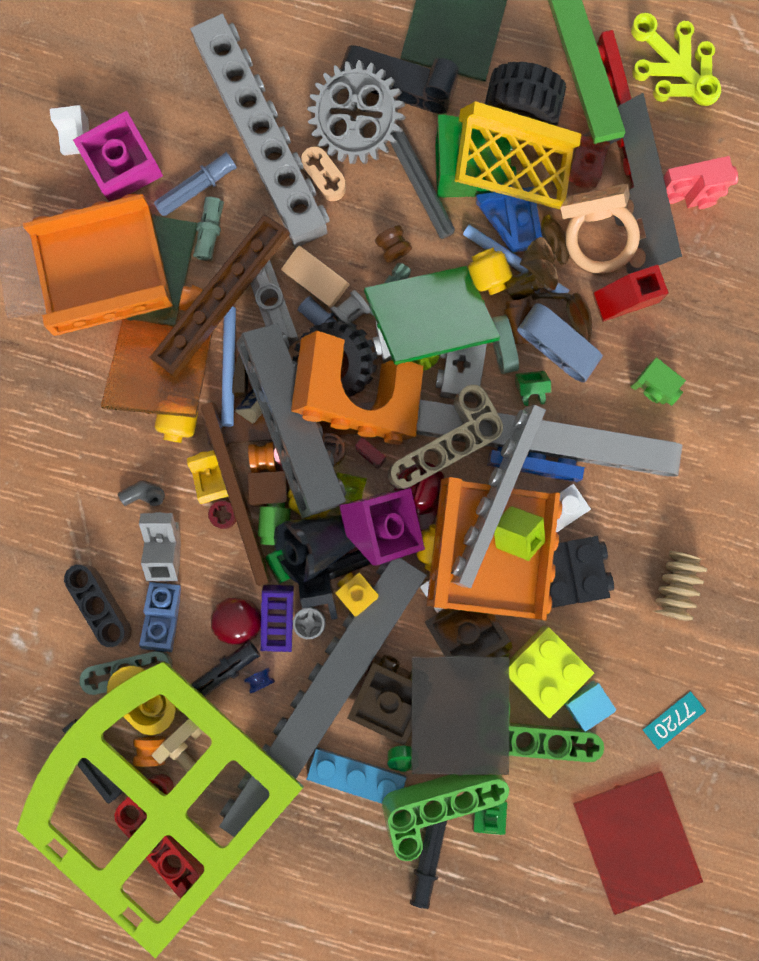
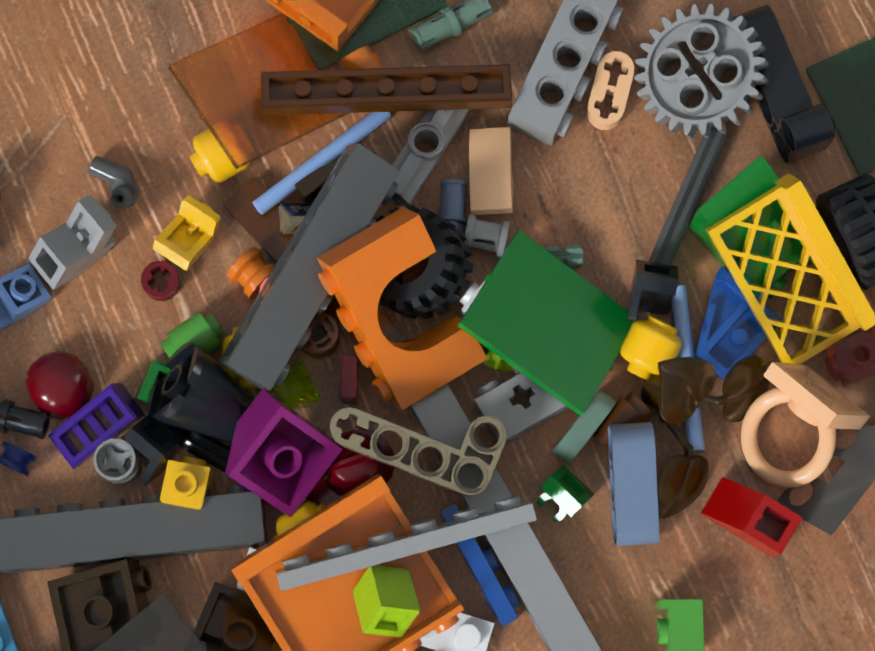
camera: 50 degrees right, 5 degrees down
(236, 493) = (191, 276): reddish brown tile -> none
(267, 488) = (222, 302): reddish brown panel -> none
(393, 243) = (595, 223): reddish brown wheel -> none
(457, 243) = (652, 288): none -> black panel

